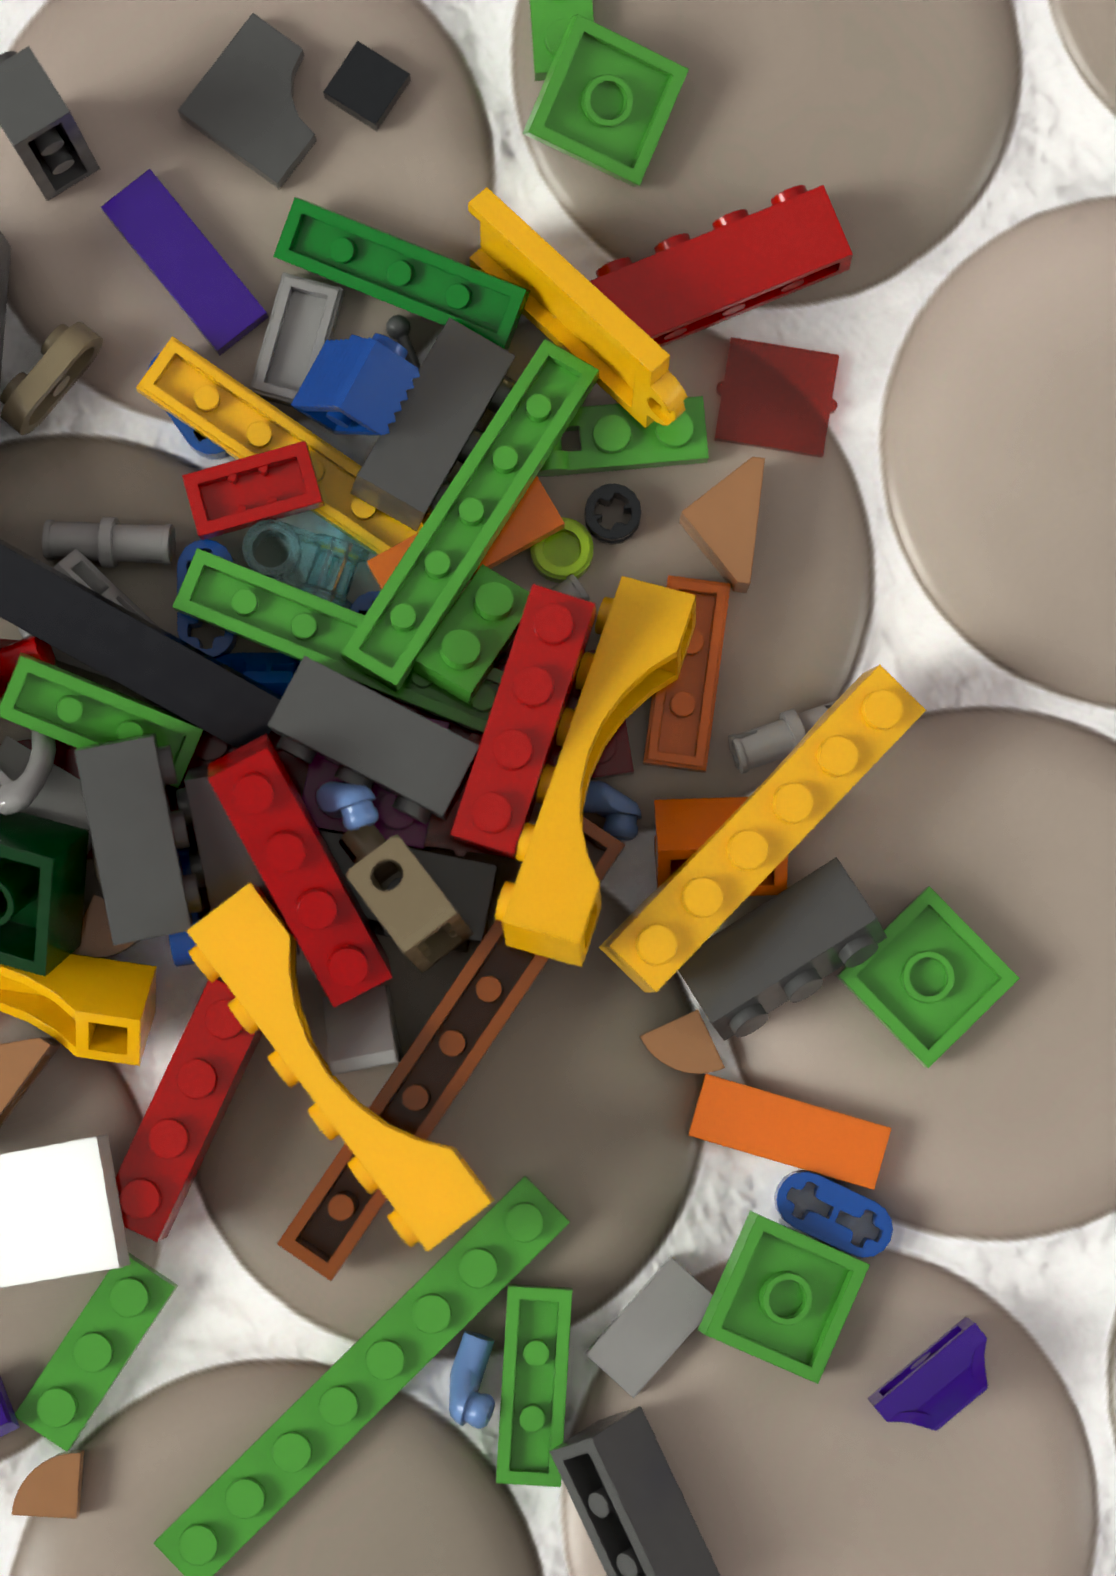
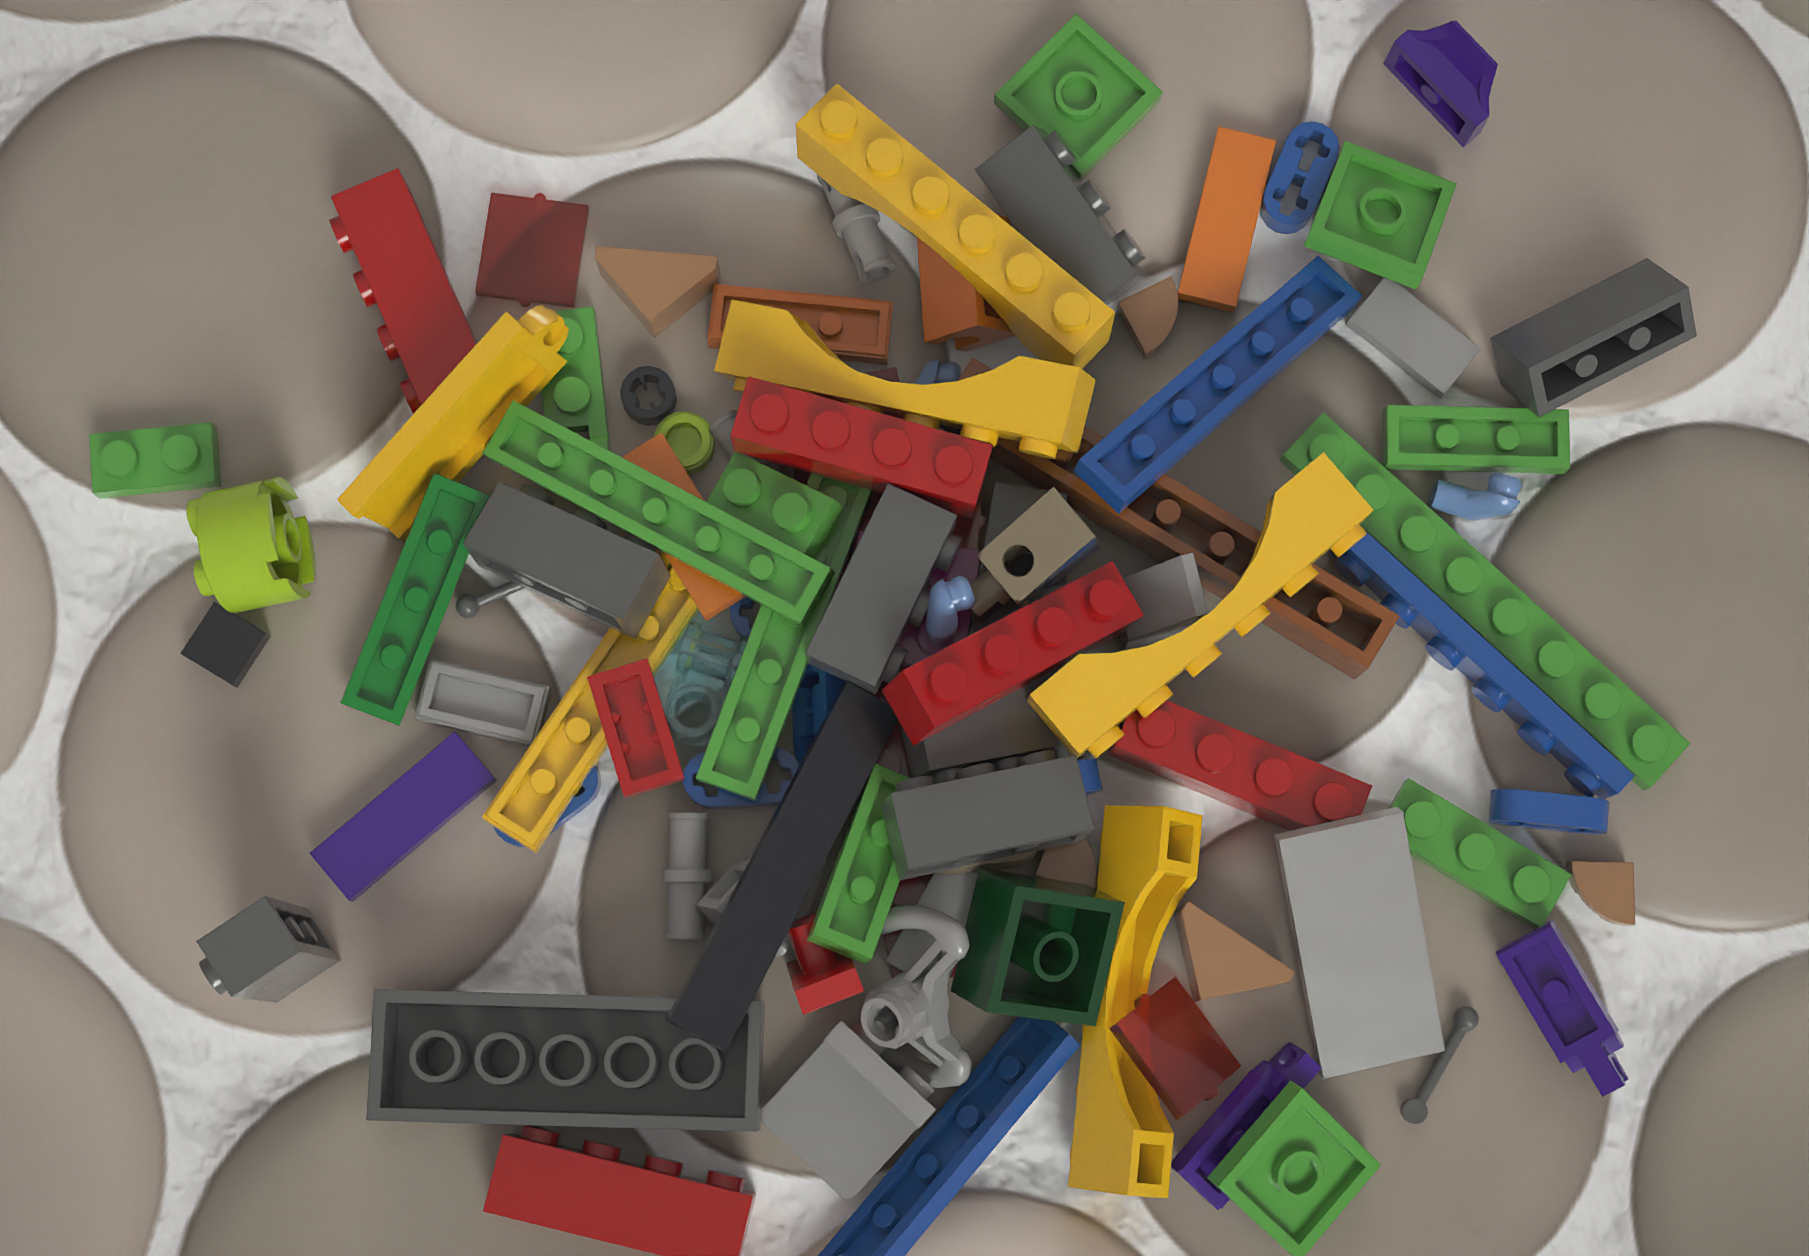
camera: 95 degrees left, 5 degrees down
(65, 359) = (542, 960): dark tan plate -> none
(132, 1432) = (1548, 811): none -> blue beam
(249, 102) = (244, 758): dark grey tile -> none
(270, 1385) = (1494, 678): none -> blue plate
(357, 385) = (531, 628): blue brick -> none
(457, 108) = (251, 545): none -> lime brick
(591, 1105) = (1216, 384): none -> blue plate
(605, 100) = (243, 408): bright green plate -> none

